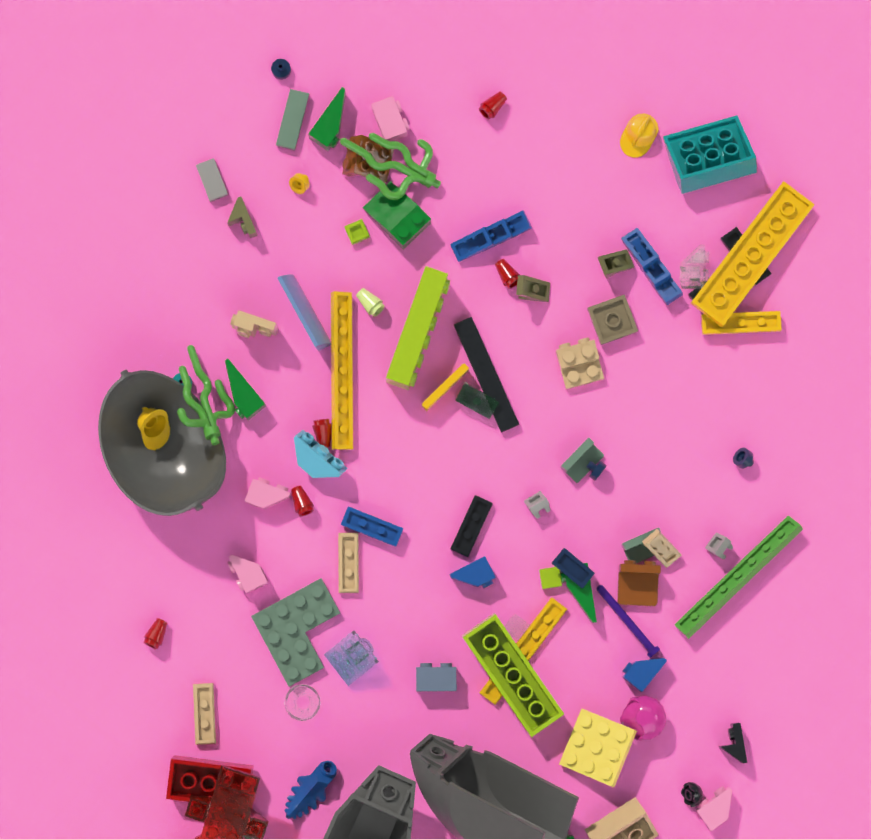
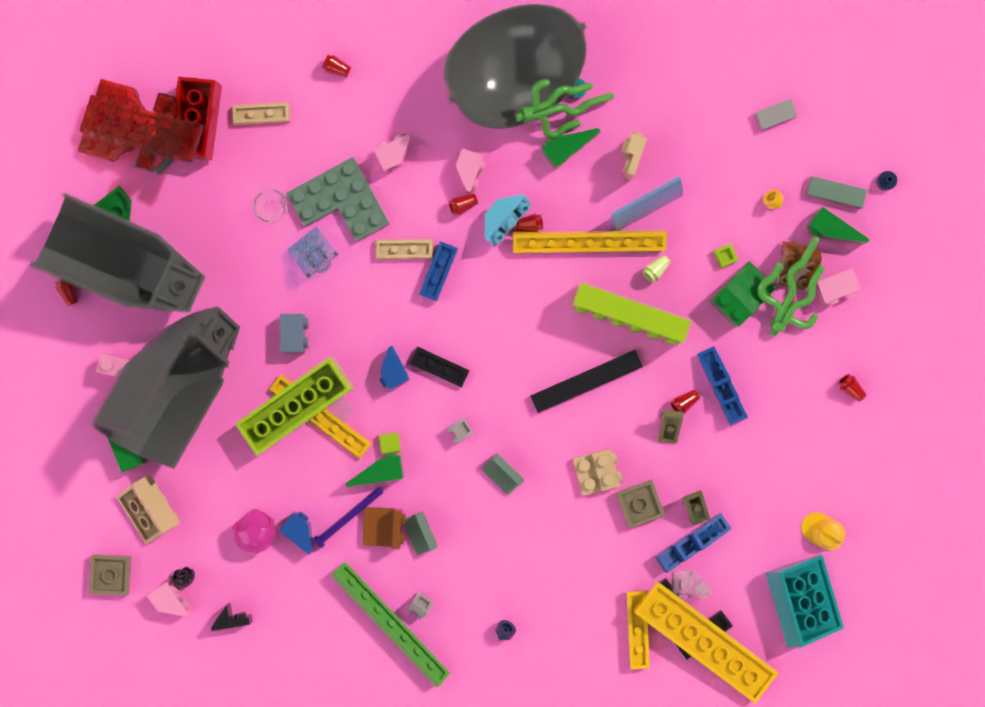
camera: 90 degrees right, 5 degrees up
(154, 427) = (532, 60): yellow piece -> none
(240, 214) = (742, 142): olive slope -> none
(311, 788) = (188, 214): blue plant -> none
(445, 386) = (588, 356): yellow tile -> none
(476, 400) = (560, 371): clear green slope -> none
(573, 568) = (397, 464): dark blue tile -> none
(596, 469) = (493, 487): dark blue tile -> none
(597, 747) = (226, 487): light yellow plate -> none
(661, 548) = (417, 550): tan plate -> none

